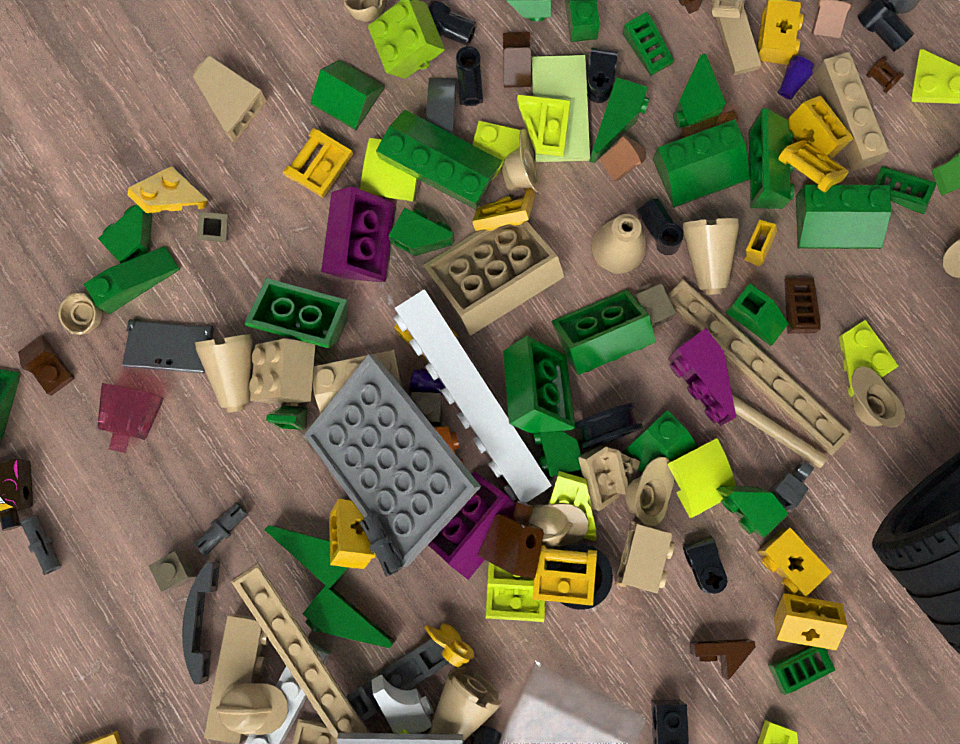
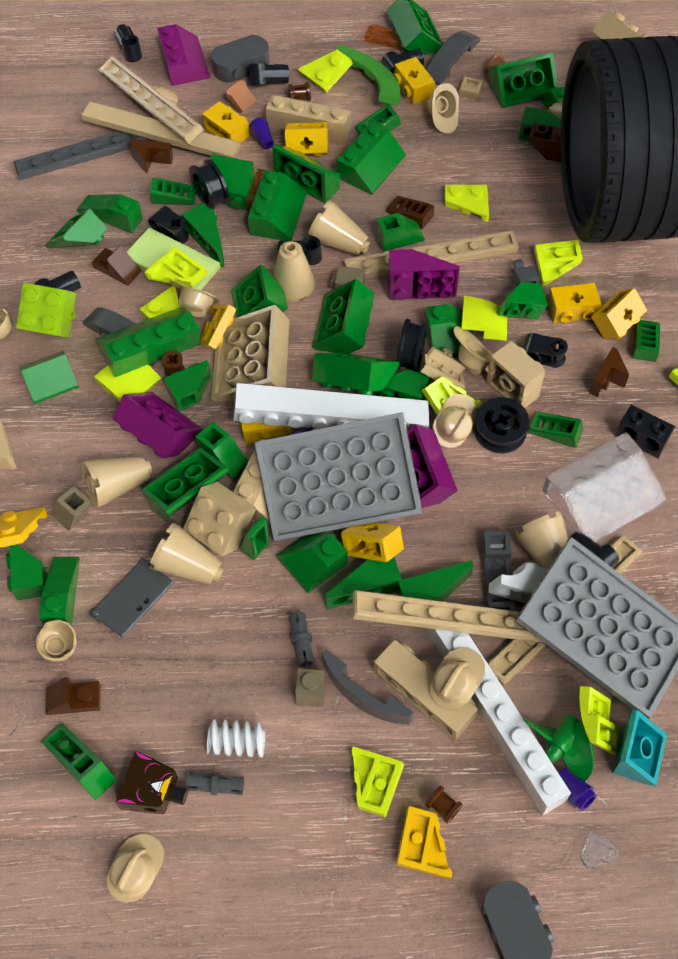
camera: 60 degrees left, 20 degrees down
(85, 537) = (236, 738): none -> white piece
(125, 686) = (375, 780): none -> neon yellow wing
(126, 414) = (161, 654): clear pink torso -> none
(269, 240) = (113, 477): none -> tan cone
(307, 484) = (314, 559): none -> green slope
(325, 166) = (90, 418): yellow plate -> none
(363, 320) = (223, 448): none -> green slope
(381, 544) = (396, 515): dark grey pin -> none
(426, 198) = (175, 362): none -> reddish brown bush
(455, 649) = (504, 520): yellow plate -> none
(469, 77) = (100, 294): black piece -> none
(511, 597) = (483, 470): neon yellow slope -> none
(514, 542) = (451, 438): reddish brown torso -> none
(565, 586) = (501, 429): yellow plate -> none
(570, 228) = (258, 292): none -> green slope
(609, 647) = (564, 437): none -> green slope
(623, 158) = (236, 245): nougat tile -> none
(674, 76) = (209, 184): none -> black wheel
(767, 230) = (359, 213): yellow piece -> none
(779, 433) = (489, 265): tan piece -> none
(813, 164) = (335, 144): yellow plate -> none
(844, 506) = (557, 259): none -> neon yellow wing
(874, 400) = (501, 208): tan piece -> none

